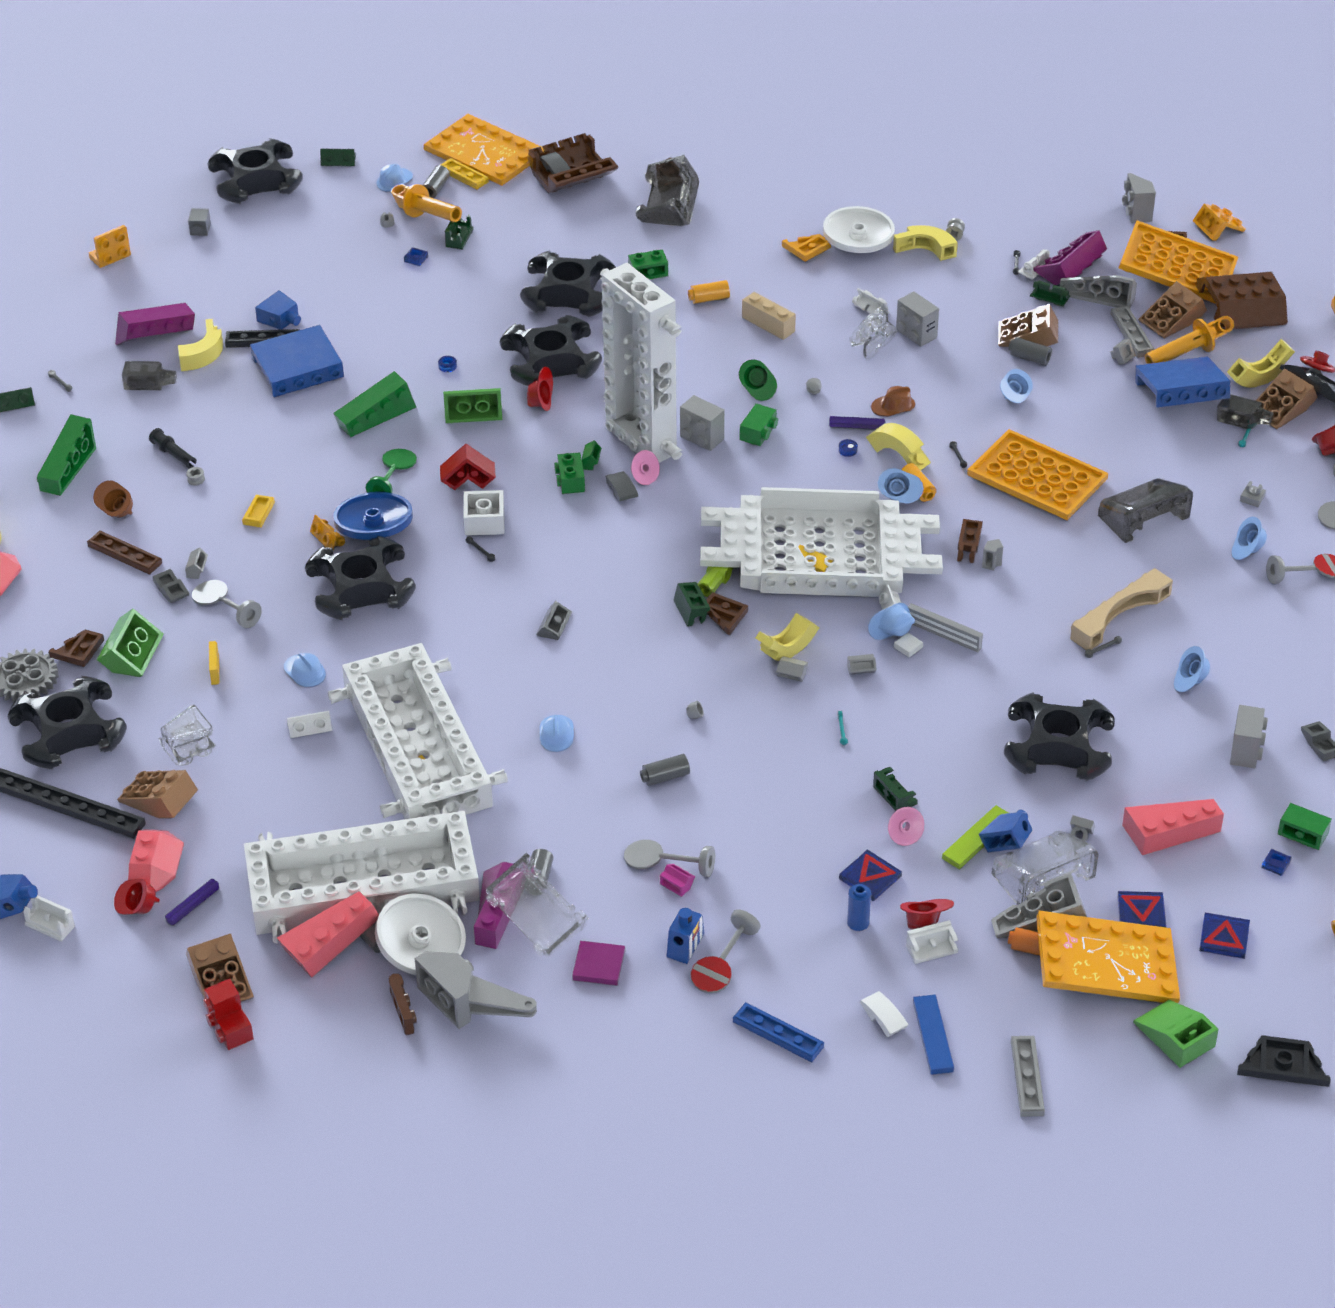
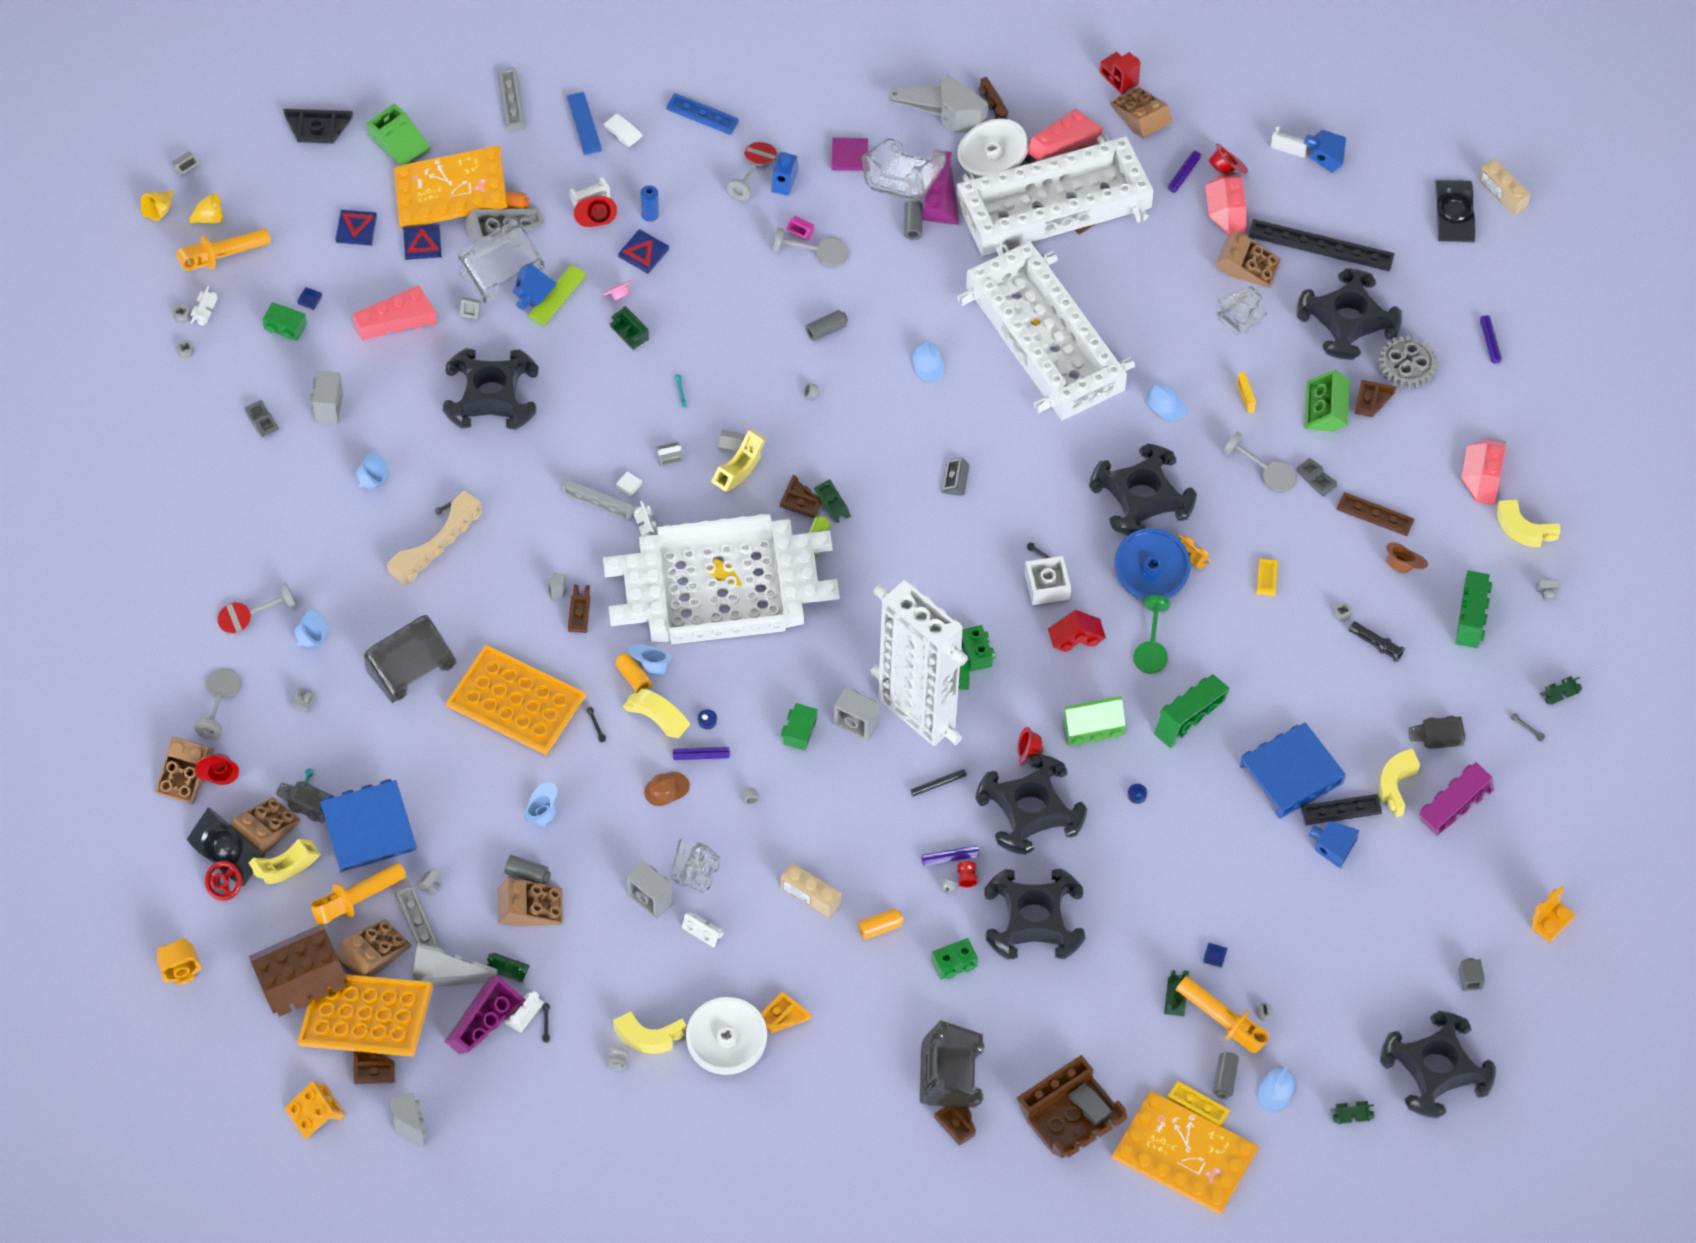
camera: 170 degrees right, 15 degrees up
(192, 569) = (1301, 500): light grey piece -> none
(309, 724) = (1150, 339): white hinge -> none
(757, 379) = (809, 794): green piece -> none
(891, 621) = (642, 488): light blue piece -> none

